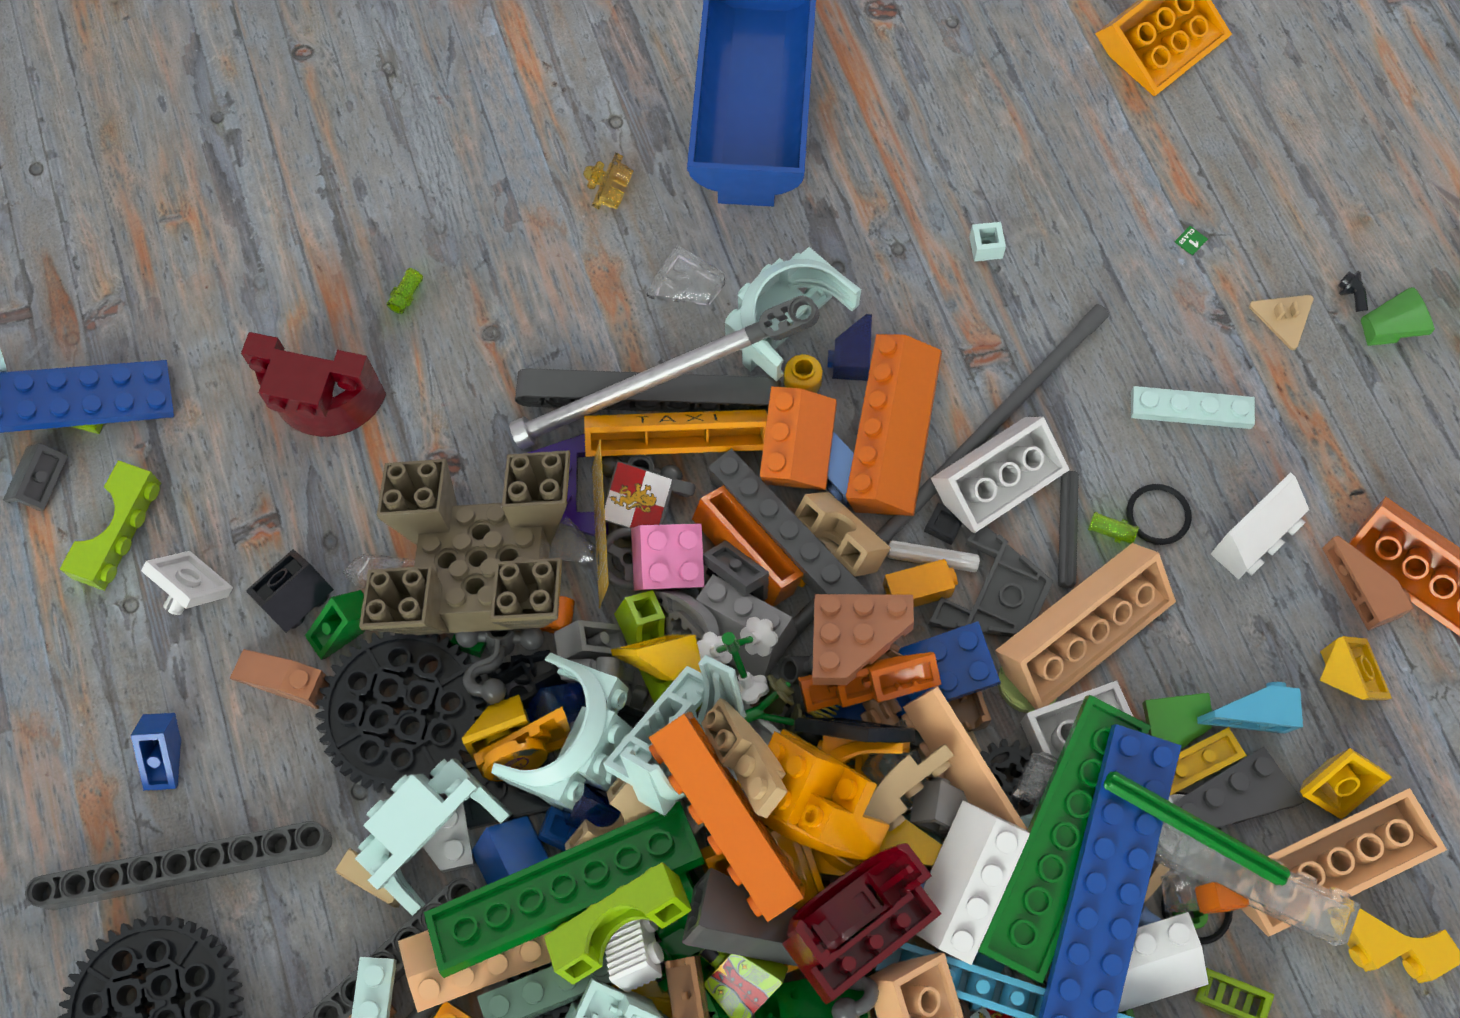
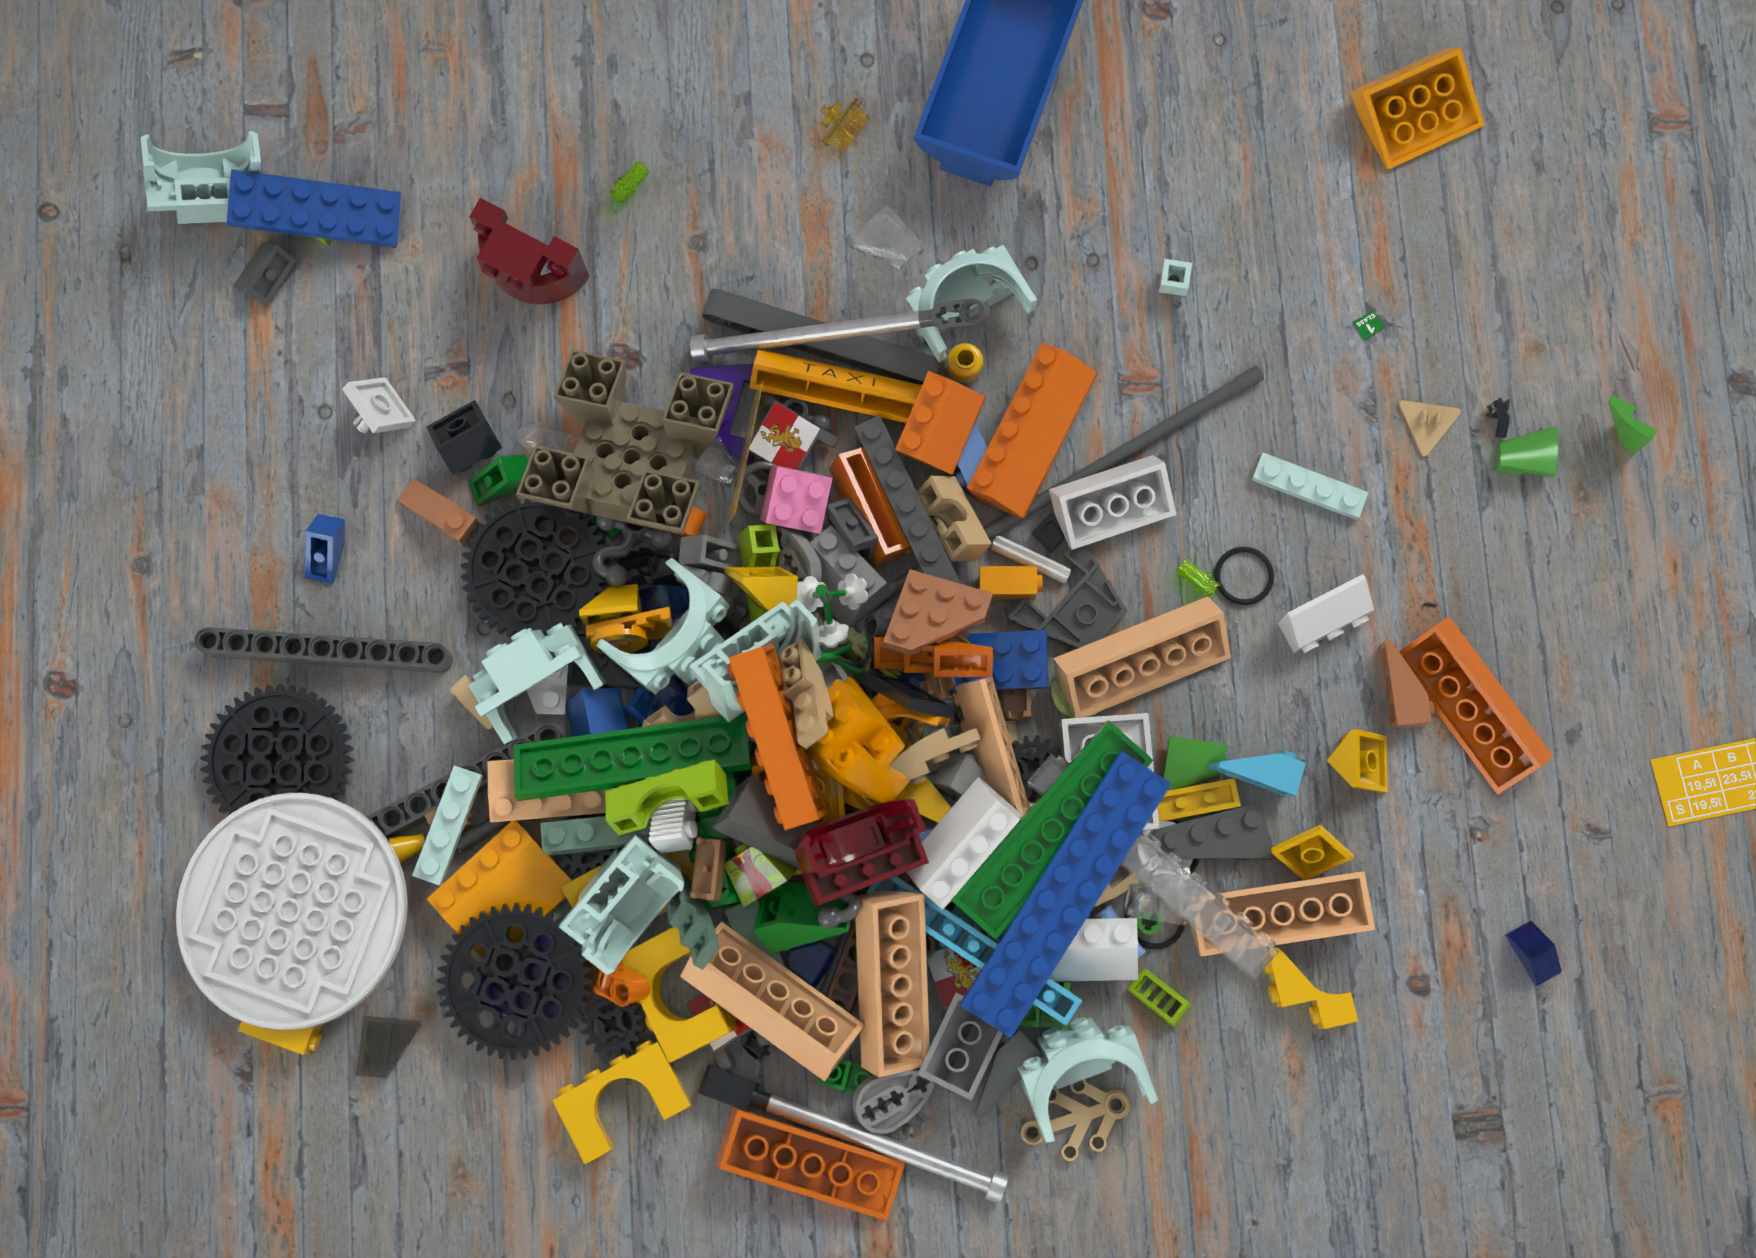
camera: 15 degrees right, 10 degrees up
(97, 559) = (305, 363): lime arch -> none
(852, 351) = (1017, 350): clear blue slope -> none
(1068, 529) = (1158, 567): dark grey axle -> none
(1196, 828) = (1159, 853): green axle -> none
(1218, 899) = (1165, 915): orange slope -> none

